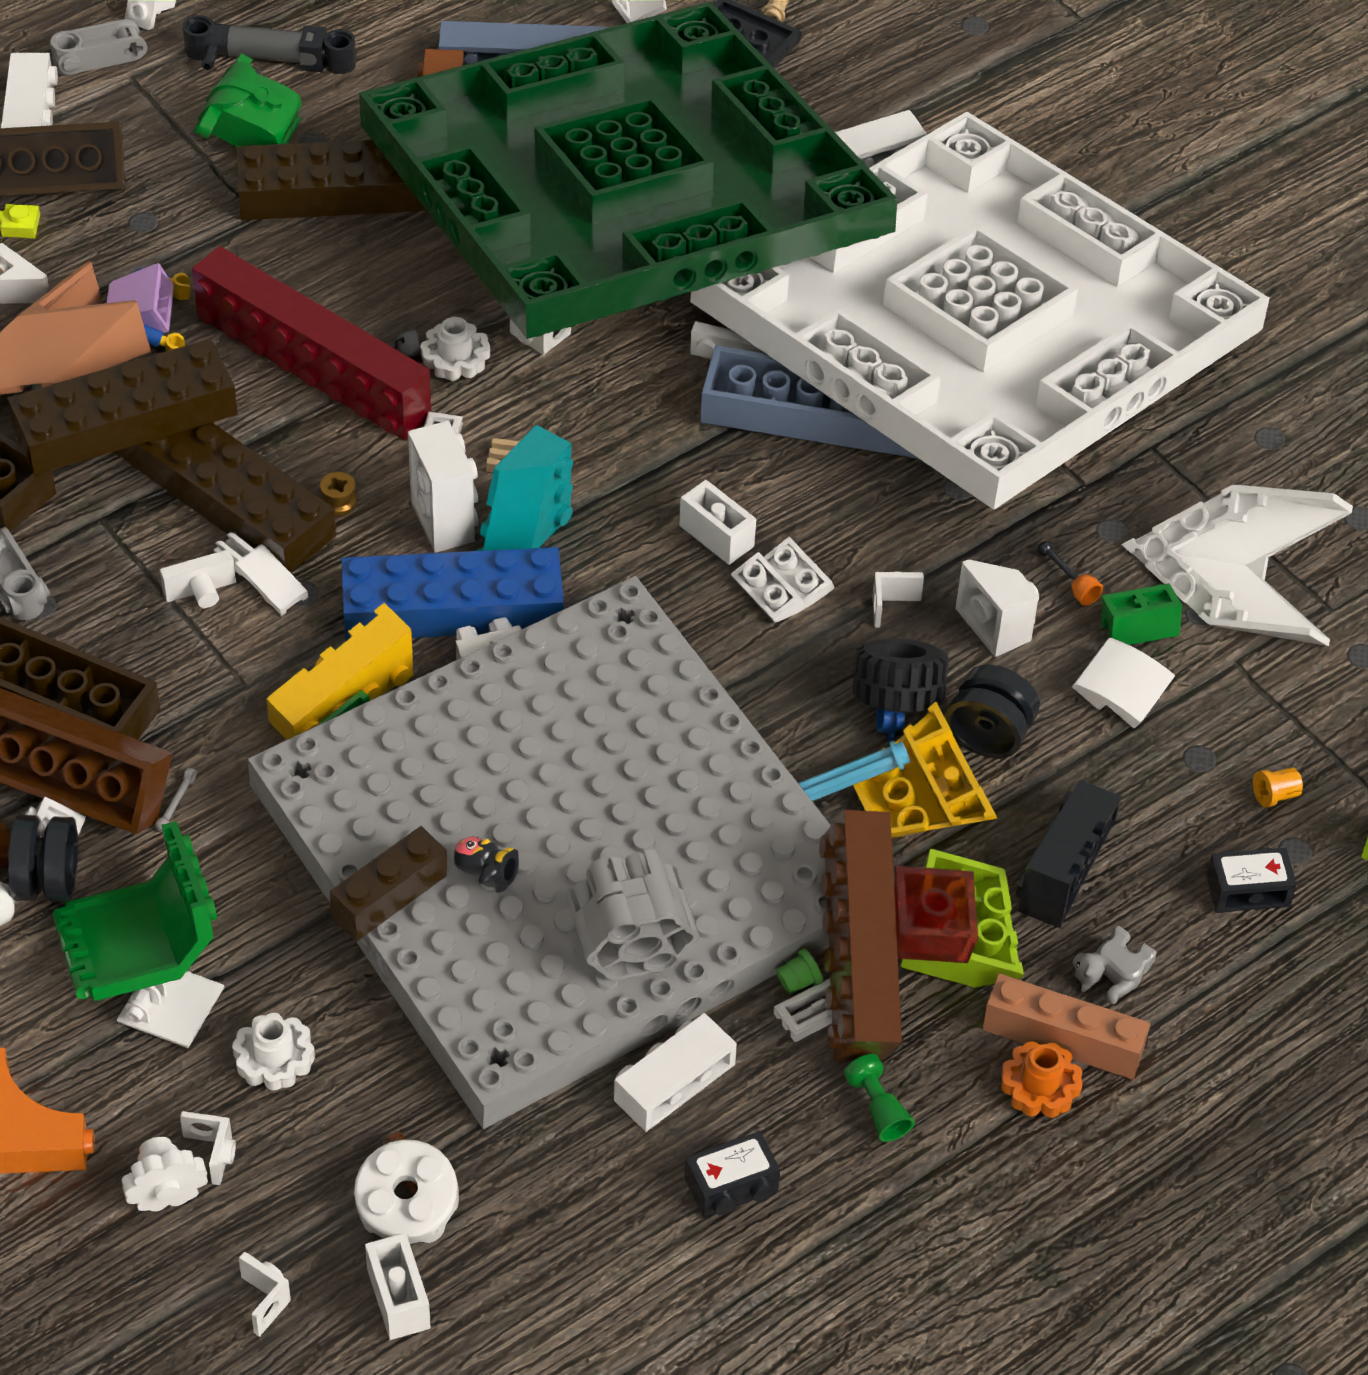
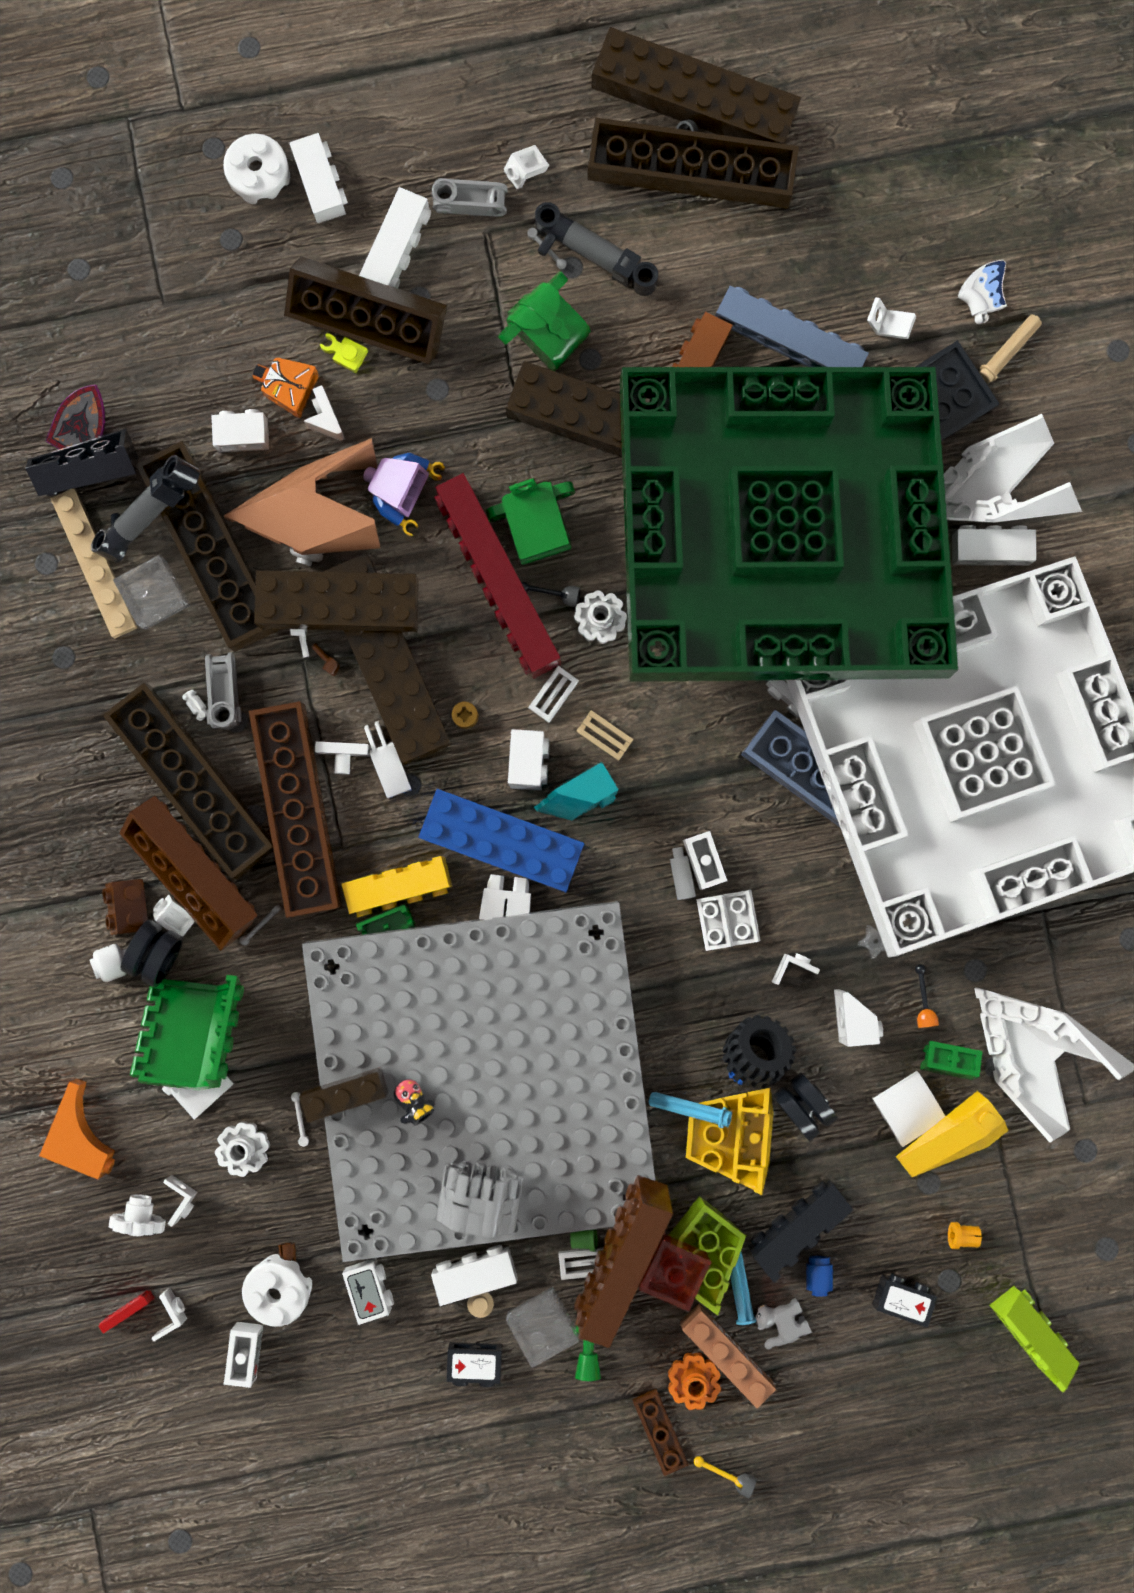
camera: 30 degrees right, 35 degrees up
(80, 484) = (302, 638): none -> white hand
(139, 505) = (331, 666): none -> reddish brown hand
(167, 644) = (295, 809): none -> reddish brown brick
(188, 60) = (533, 235): none -> light grey hinge
(196, 1310) = (126, 1311): none -> red tile
(331, 270) = (535, 518): none -> green piece
(354, 1016) = (303, 1140): none -> white hinge
(536, 1147) = (368, 1291): none -> brick
(699, 555) = (682, 875): none -> light grey cylinder
(701, 1107) = (480, 1305): none -> tan plate
(800, 1084) = (542, 1327): none -> clear piece
(849, 80) = (993, 467): none -> white windscreen
(973, 546) = (868, 942): none -> clear plate
(1043, 958) = (741, 1294): none -> medium azure axle
(1049, 1176) = (655, 1418): none -> reddish brown tile
(1127, 896) = (819, 1275): none -> blue brick
(1182, 1174) = (744, 1482): none -> hinge
(1204, 681) = (960, 1133): none -> yellow wedge

